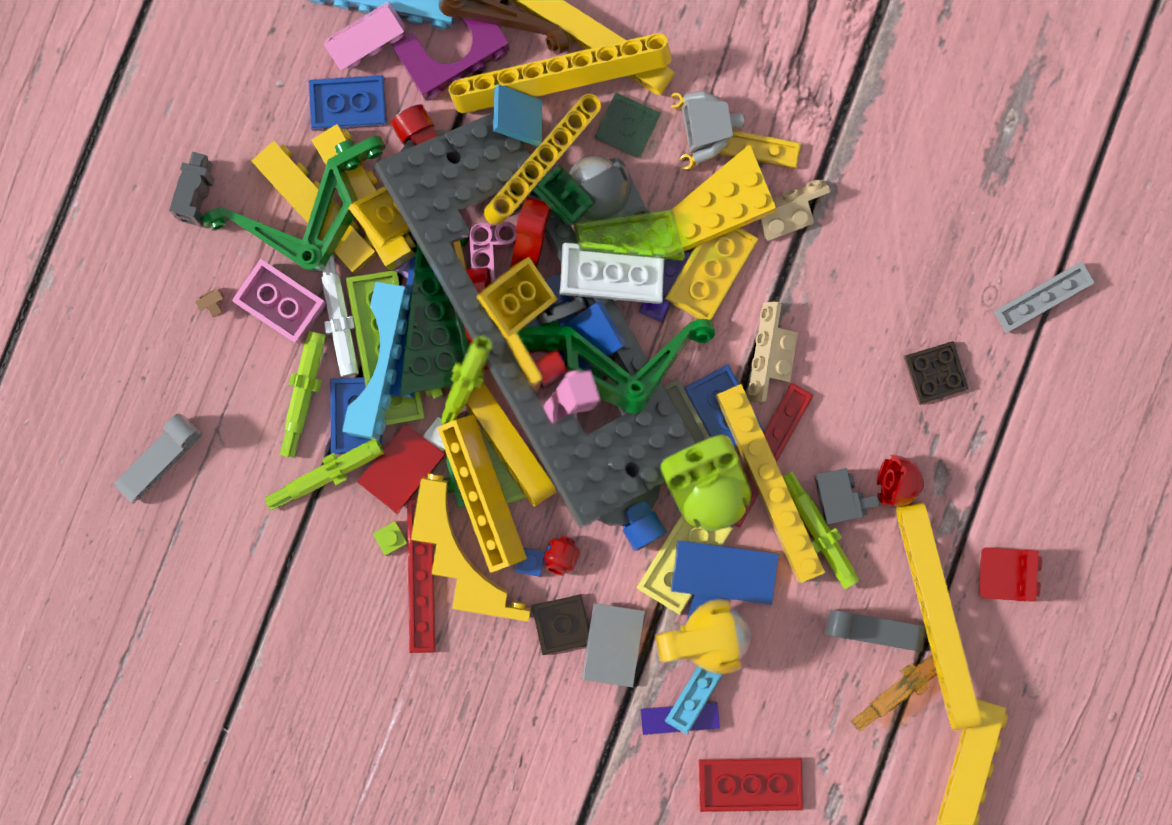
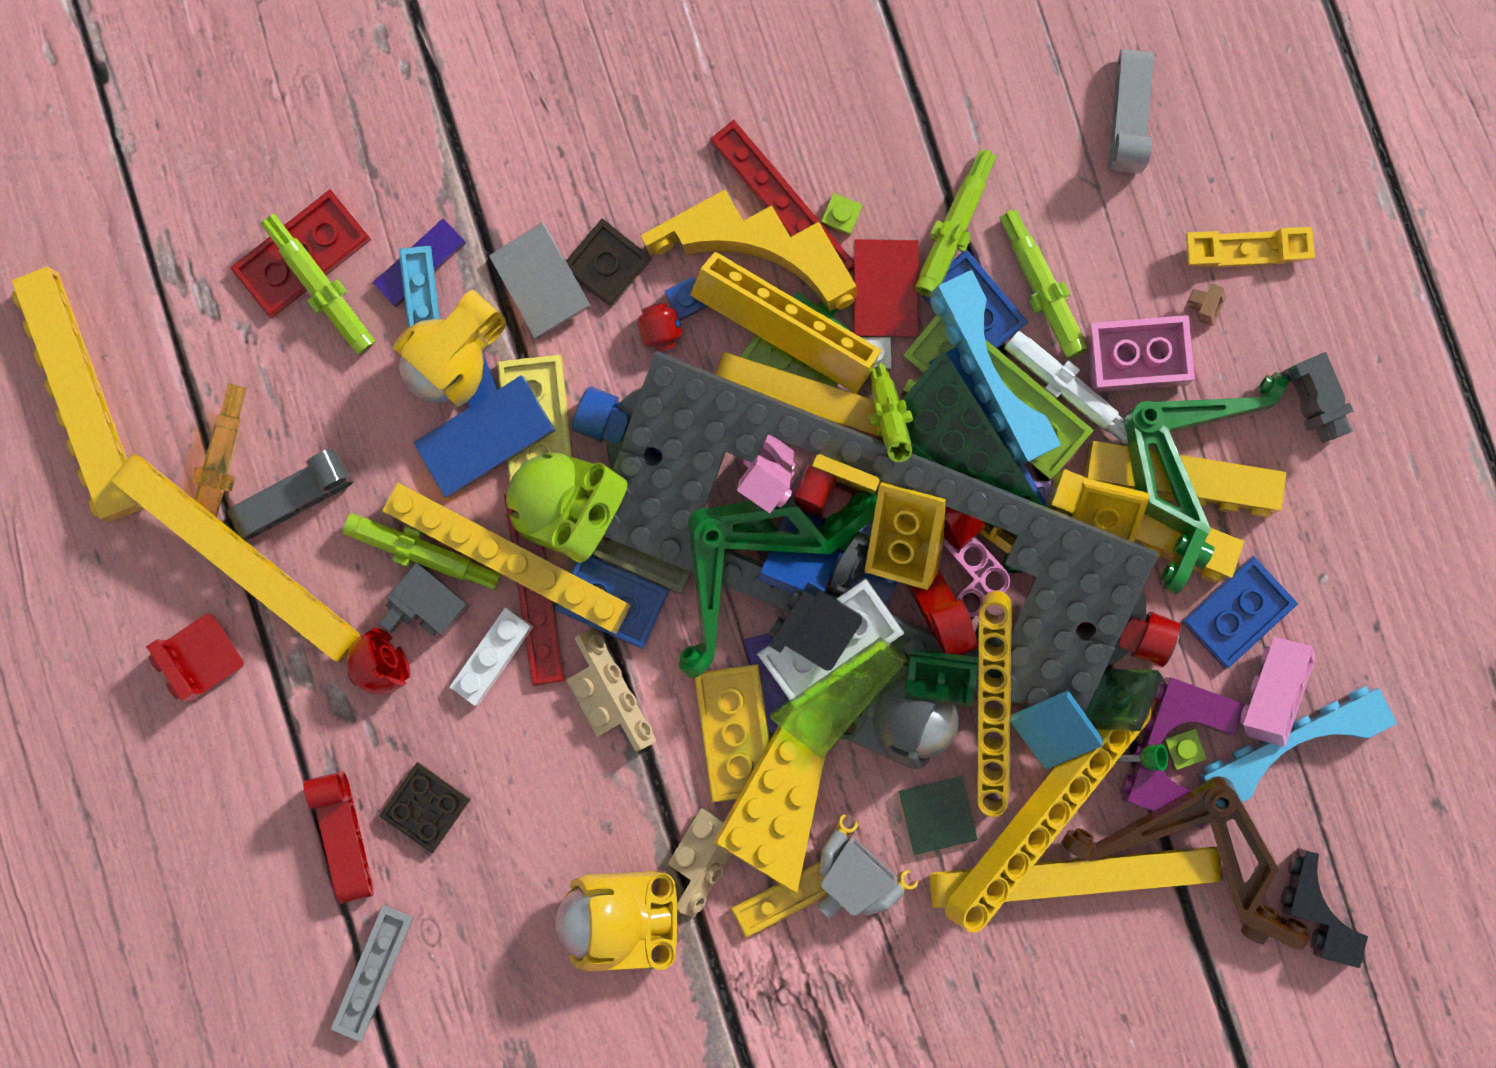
camera: 145 degrees right, 0 degrees up
(156, 316) = (1249, 248): none -> yellow slope
(447, 48) = (1184, 749): none -> lime plate
(462, 102) = (1123, 699): none -> clear green tile
(473, 55) = (1152, 757): none -> green hinge
(614, 286) = (816, 627): none -> black bracket
(755, 742) = (325, 295): none -> lime piece
(825, 432) = (491, 656): none -> white plate
(870, 209) = (618, 921): none -> yellow piece
(992, 414) = (340, 835): none -> red beam

